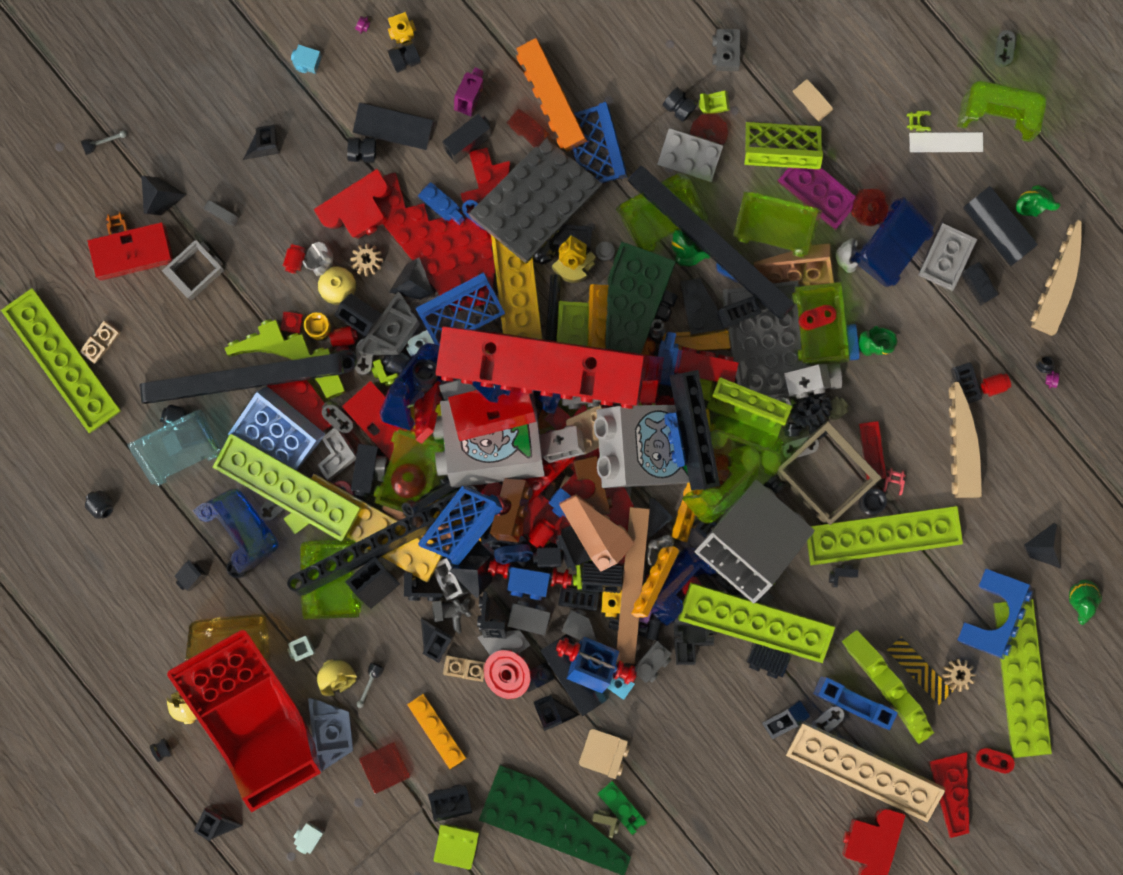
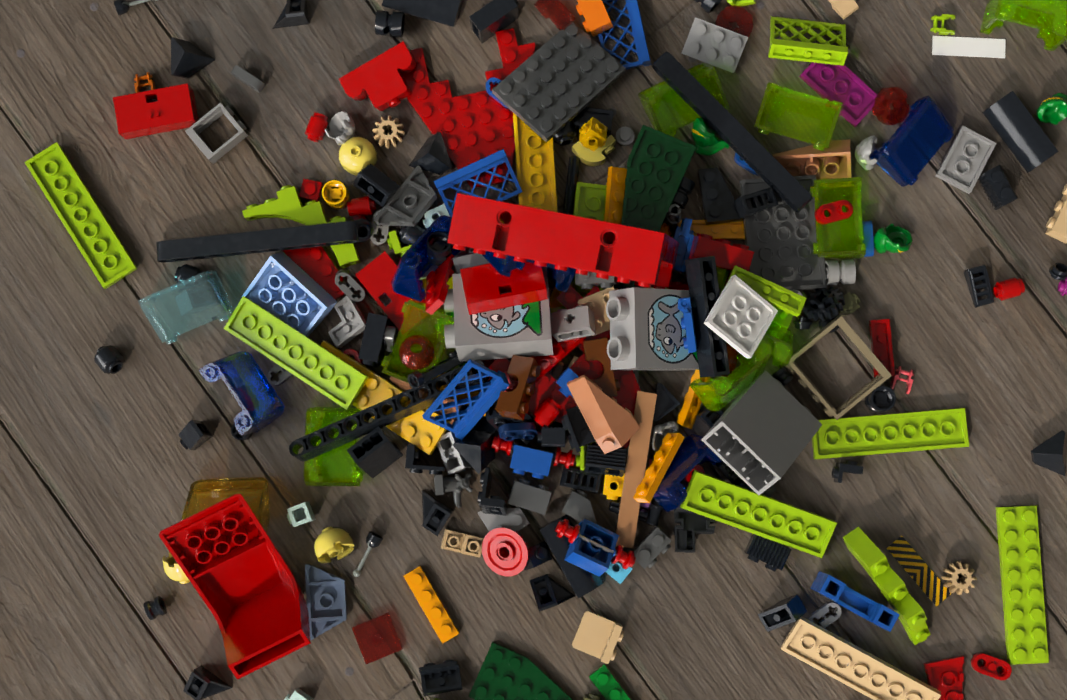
camera: 10 degrees right, 0 degrees up
(100, 342) = (120, 200): tan slope -> none
(295, 523) = (302, 388): lime slope -> none
(441, 203) = (465, 80): blue hinge -> none
(727, 428) = (740, 316): none -> white plate
(796, 443) = (806, 336): light grey beam -> none
(797, 381) = (812, 273): light grey brick -> none
(964, 447) = (974, 349): tan slope -> none
(998, 641) = (1001, 546): blue arch -> none

